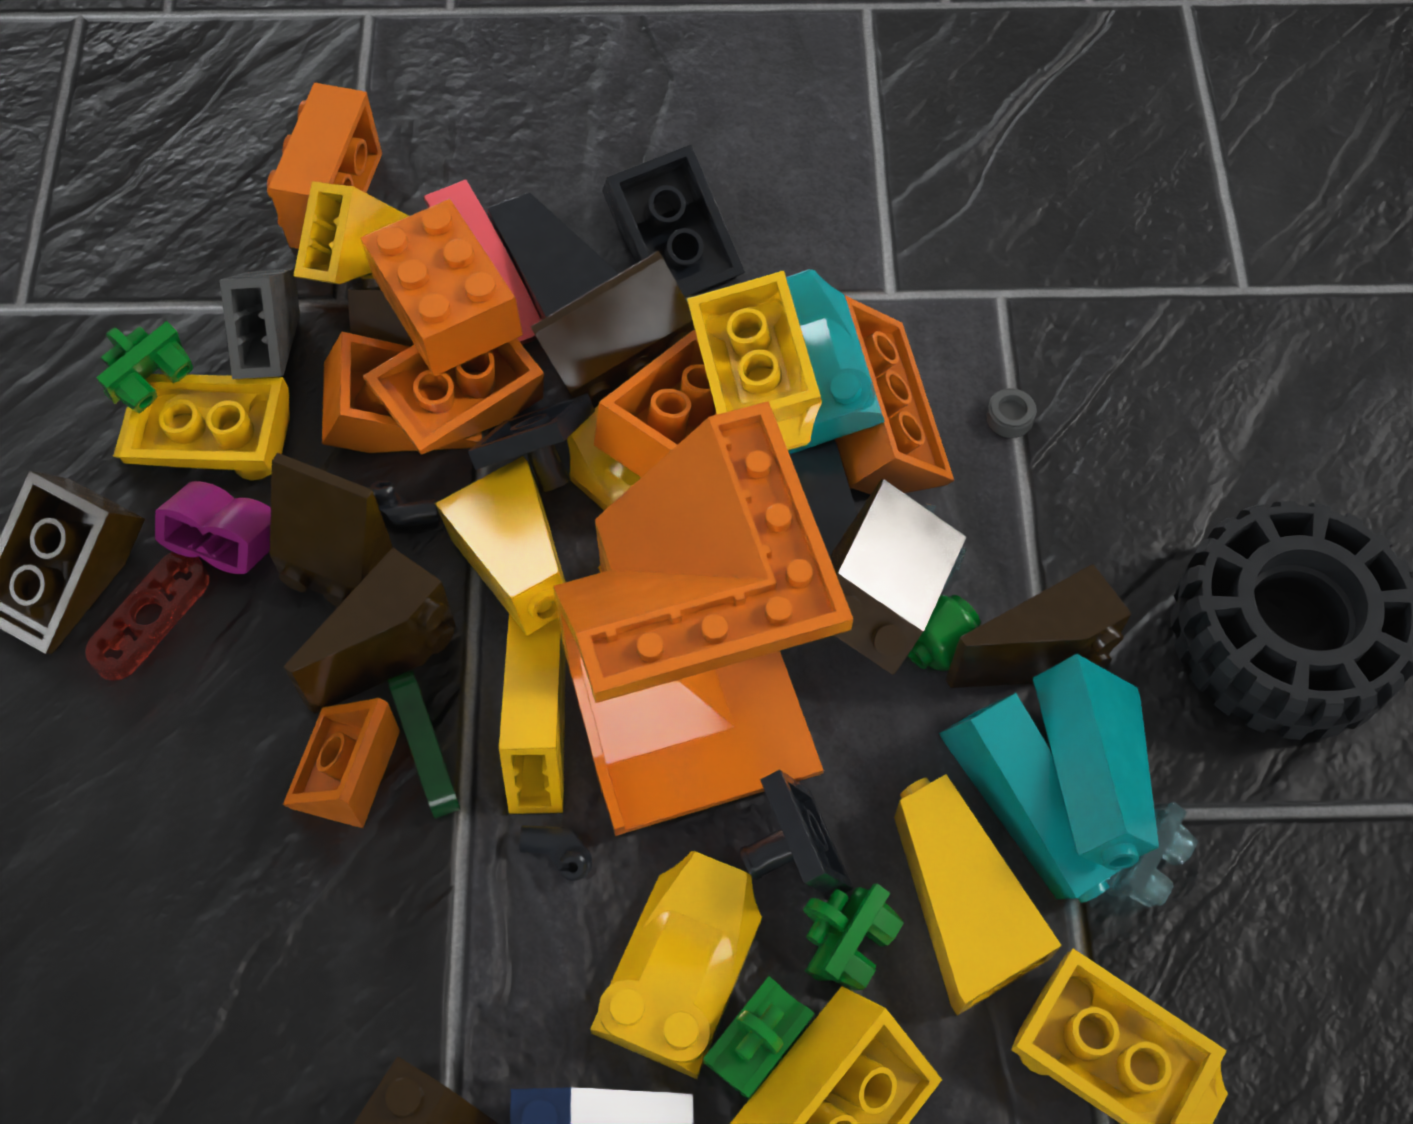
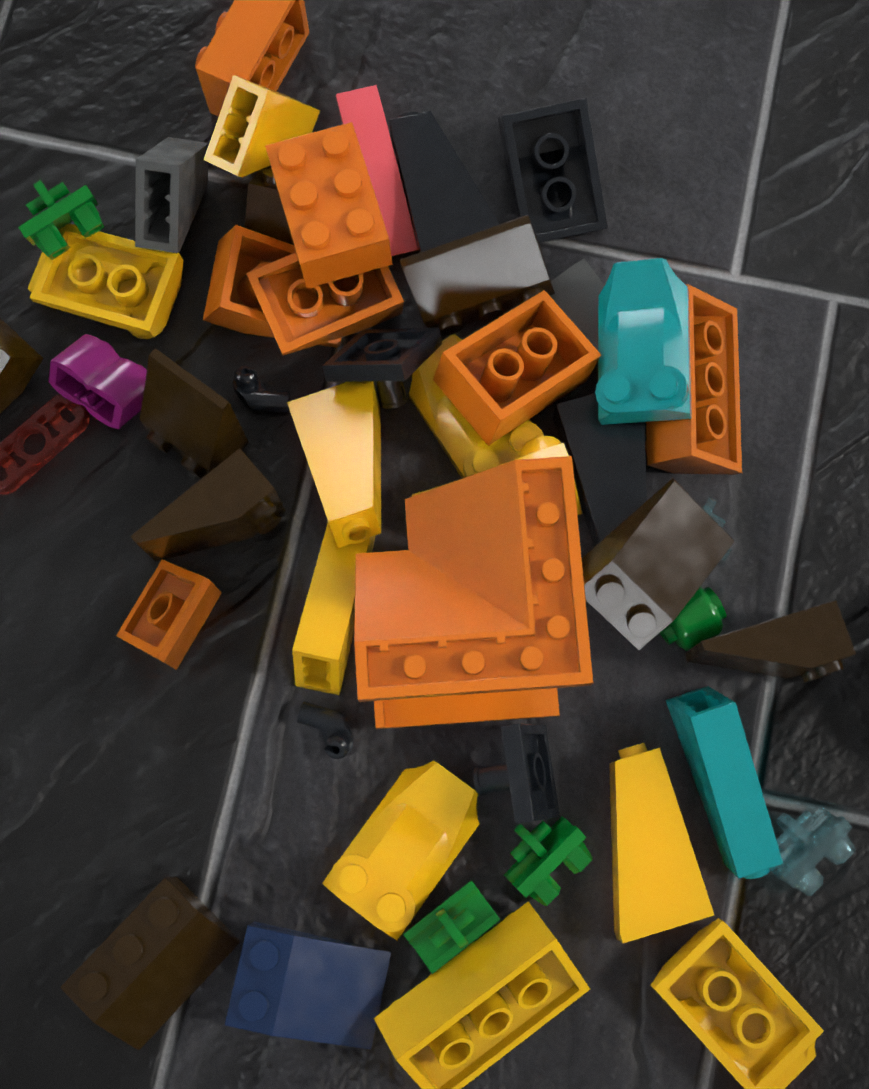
camera: 15 degrees right, 15 degrees up
(423, 744) = (237, 613): dark green beam -> none
(758, 353) = (590, 345): yellow slope -> none
(1011, 413) = (810, 419): dark grey tile -> none
(1100, 760) = (791, 773): teal slope -> none

